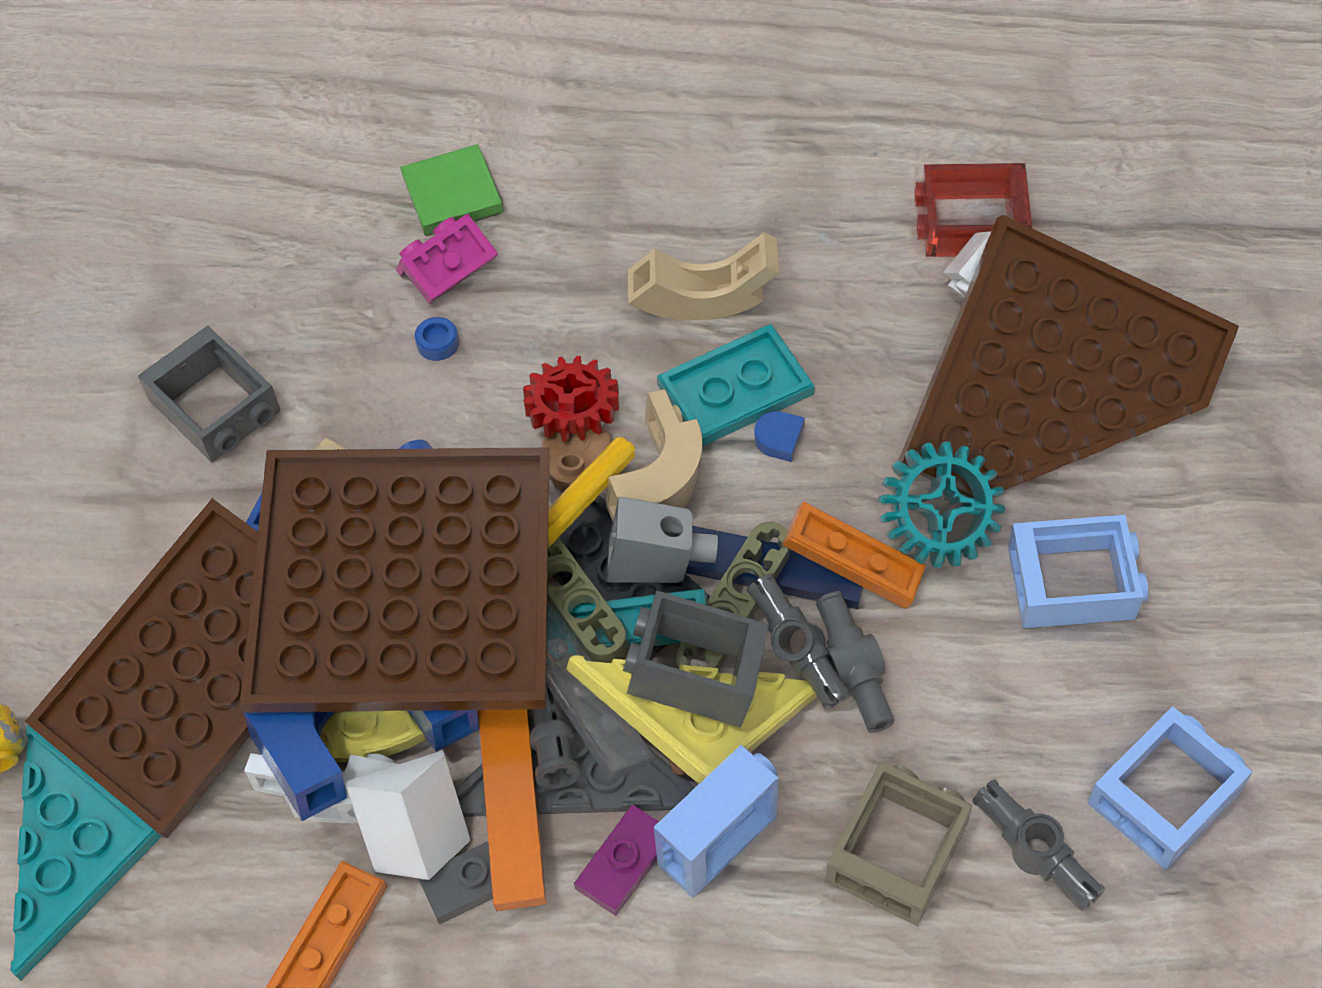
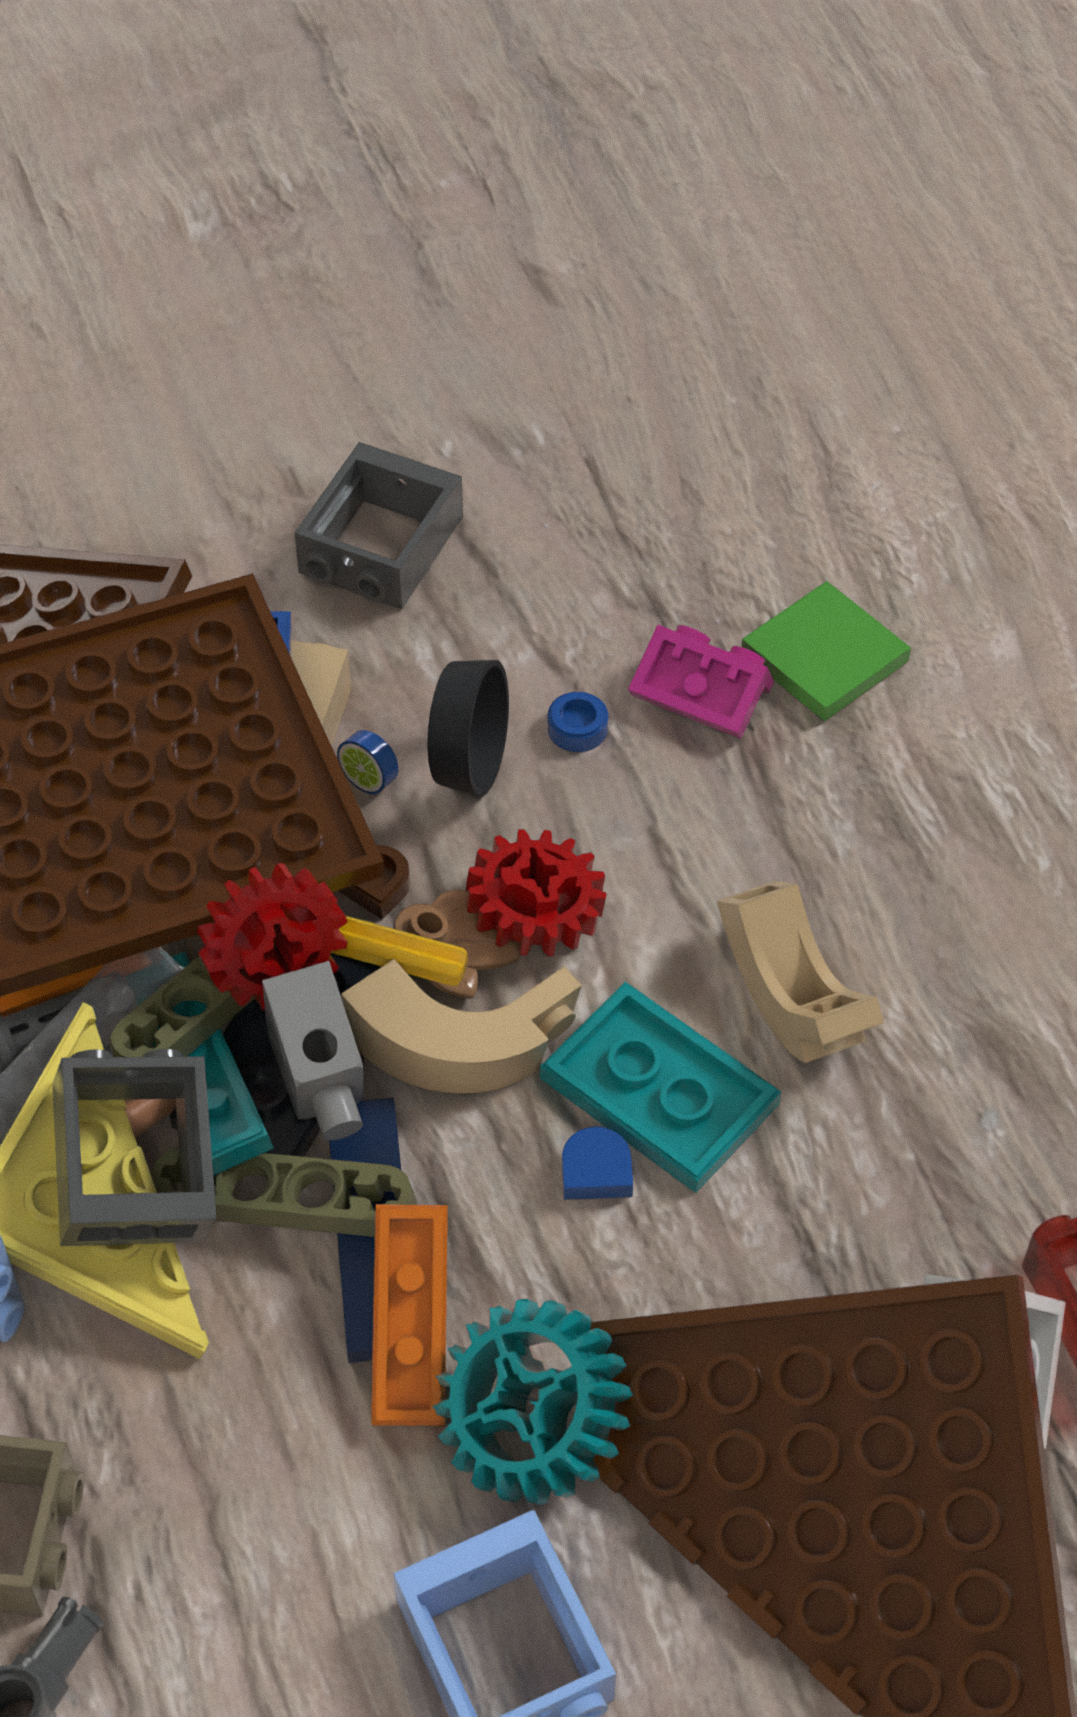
camera: 65 degrees right, 5 degrees down
(431, 385) = (468, 725): none -> black tyre
(577, 527) = (264, 937): none -> red gear
(812, 660) = (232, 1282): dark grey pin -> none
(856, 661) = (243, 1375): dark grey pin -> none

